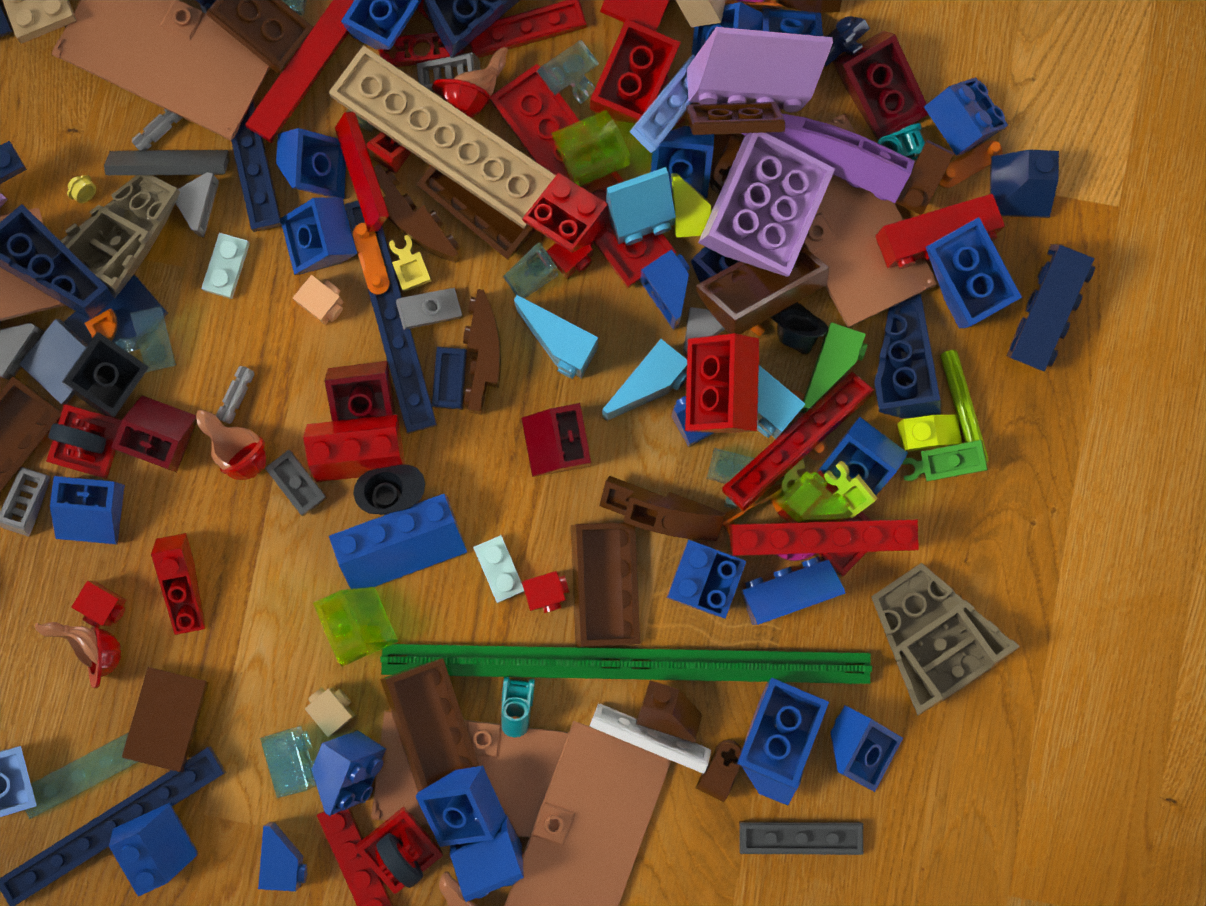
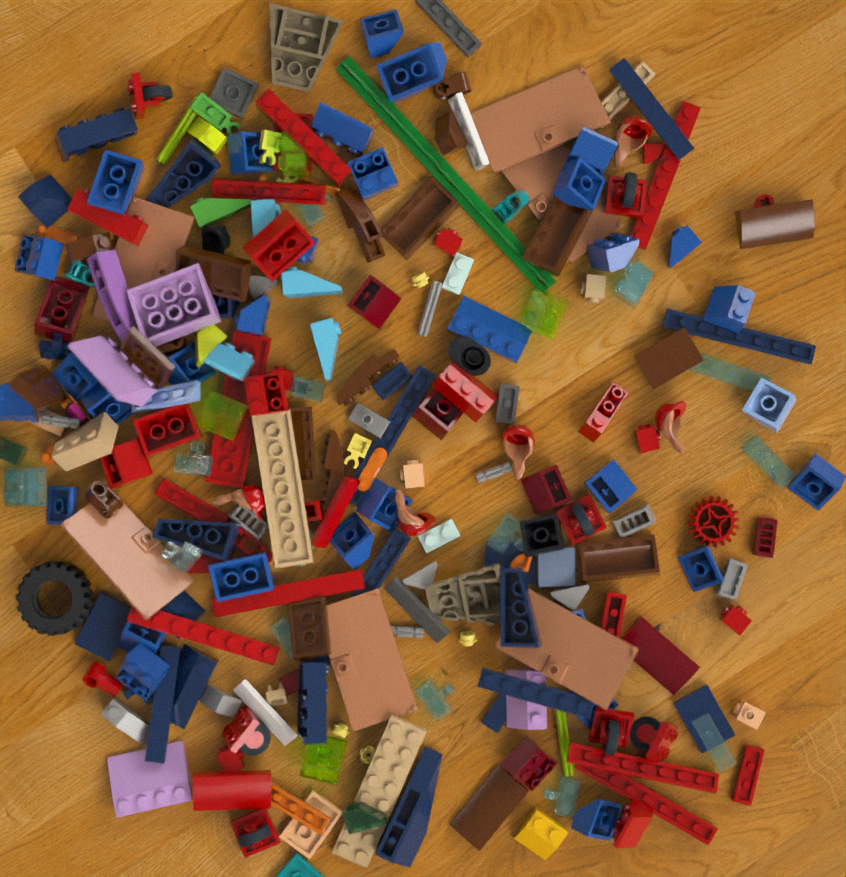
camera: 135 degrees left, 5 degrees up
(50, 89) = (435, 699): none -> clear light blue plate
(268, 249) = (409, 520): none -> piece
(490, 498) = (429, 308): none -> light grey axle
(533, 518) = (420, 279): none -> light yellow plate
(951, 509) = (234, 93): none -> dark grey tile
(1042, 409) = (146, 94): none -> red plate

